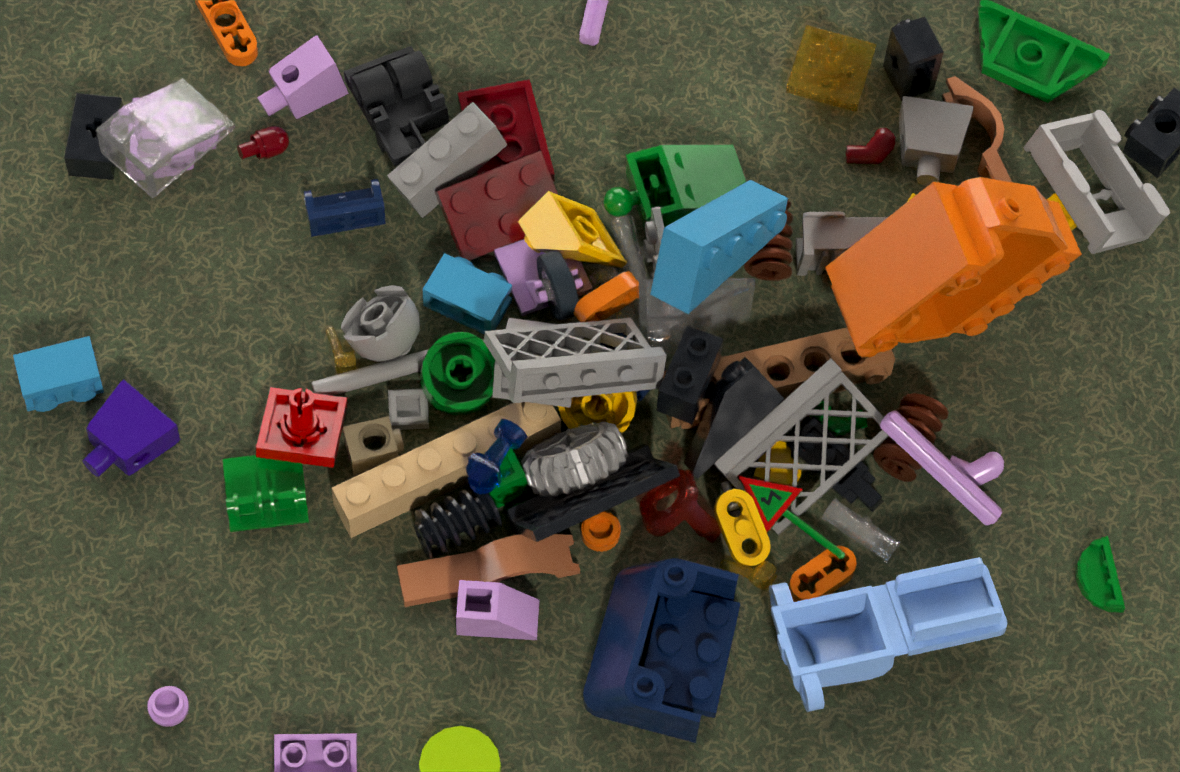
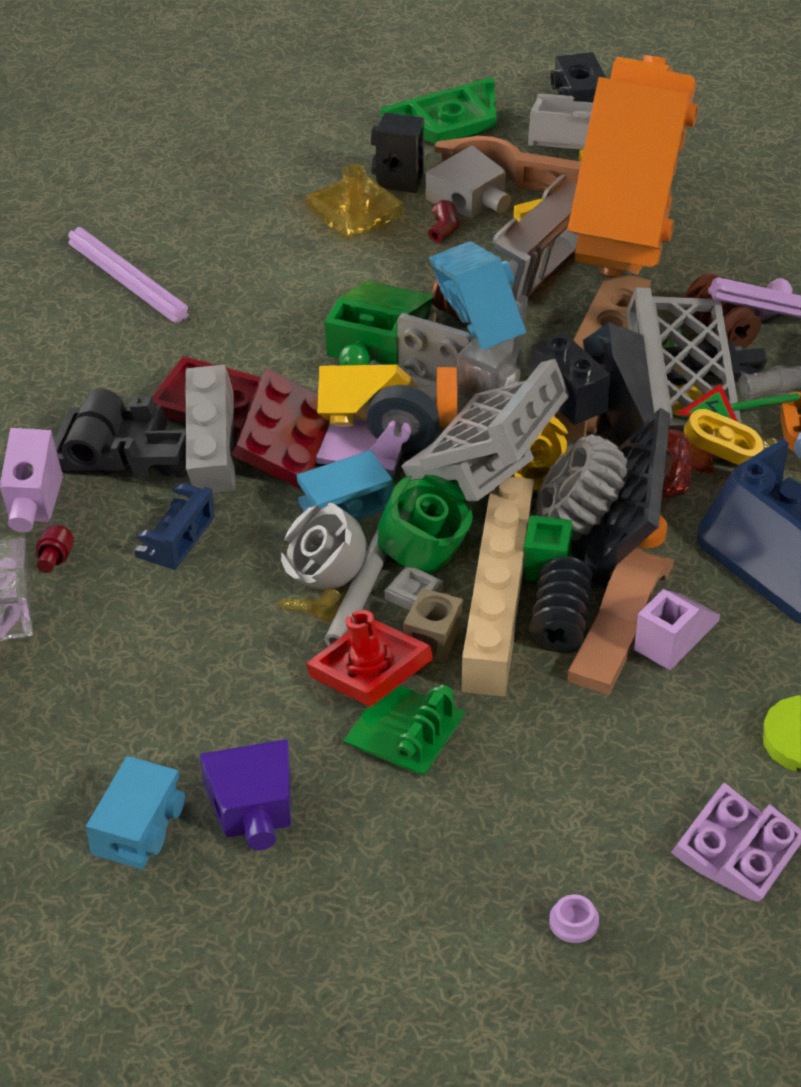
camera: 50 degrees left, 20 degrees down
(484, 469) = (548, 534): clear blue leg -> none

